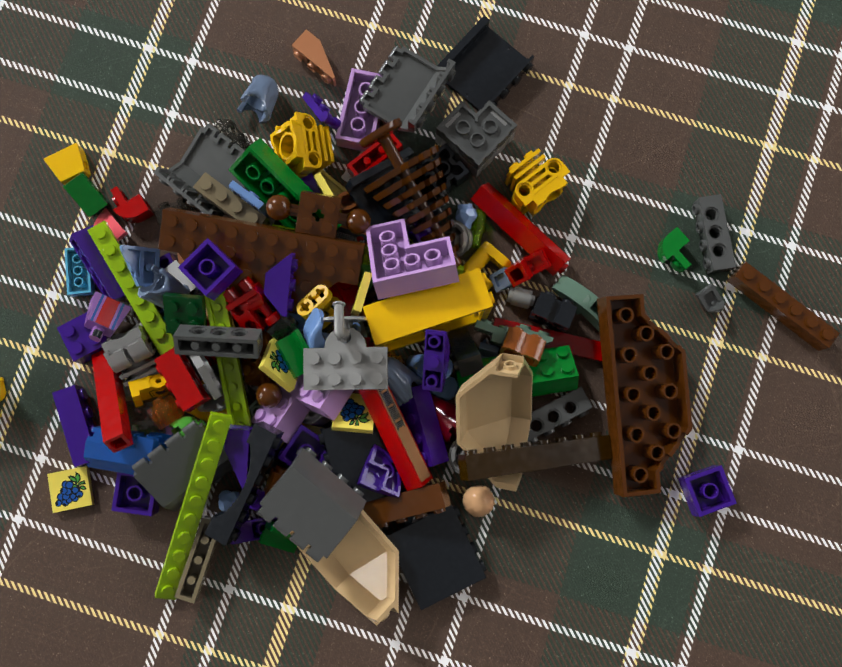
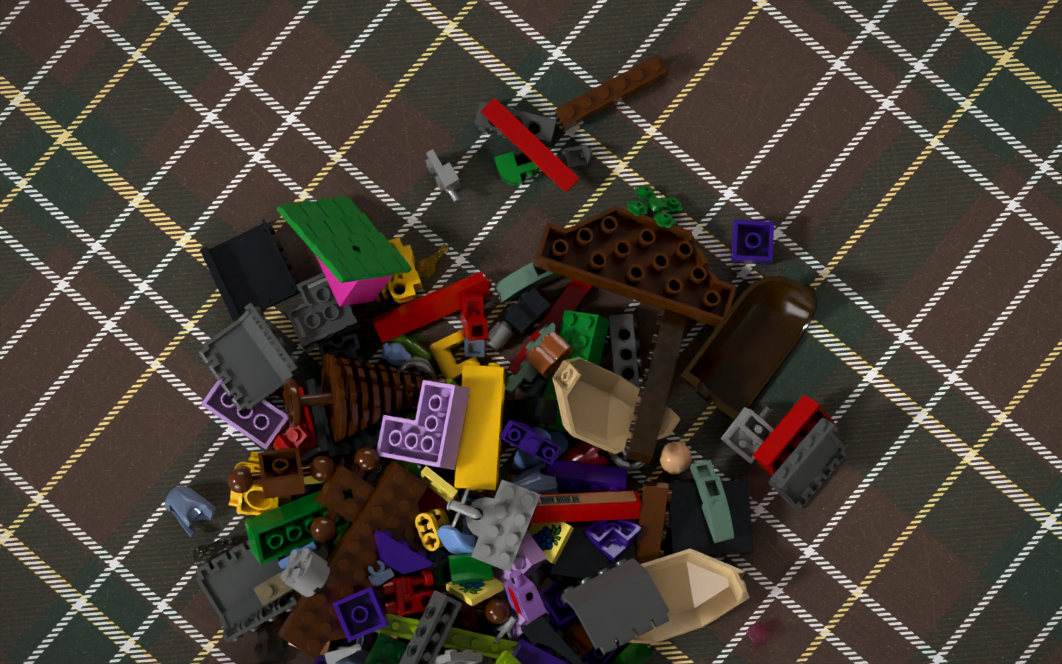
camera: 60 degrees left, 0 degrees up
(230, 205) = (305, 572): none -> light grey brick
(254, 274) = (381, 575): none -> sand blue tile
(257, 409) = (506, 628): none -> light grey bar
(292, 405) = (521, 588): none -> medium lavender torso
(310, 50) = (162, 436): nougat slope -> none
(313, 150) = (281, 473): none -> reddish brown brick
(321, 110) = (230, 452): dark purple plate -> none
(346, 154) = (293, 438): none -> red brick
(348, 645) = (758, 635): none -> clear pink piece
(452, 555) = (714, 501): none -> sand green slope
(526, 631) = (809, 464): none -> dark grey hinge
(529, 561) = (748, 432): none -> light grey plate
(539, 127) = (347, 246): none -> green piece
(542, 607) = (789, 434): none -> red brick
(554, 211) = (427, 265): none -> clear yellow plate
(615, 529) = (751, 343): none -> dark brown panel
(641, 189) = (445, 175): none -> light grey plate
(701, 387) = (656, 204): none -> green plant
(702, 253) = (530, 145): none -> red tile

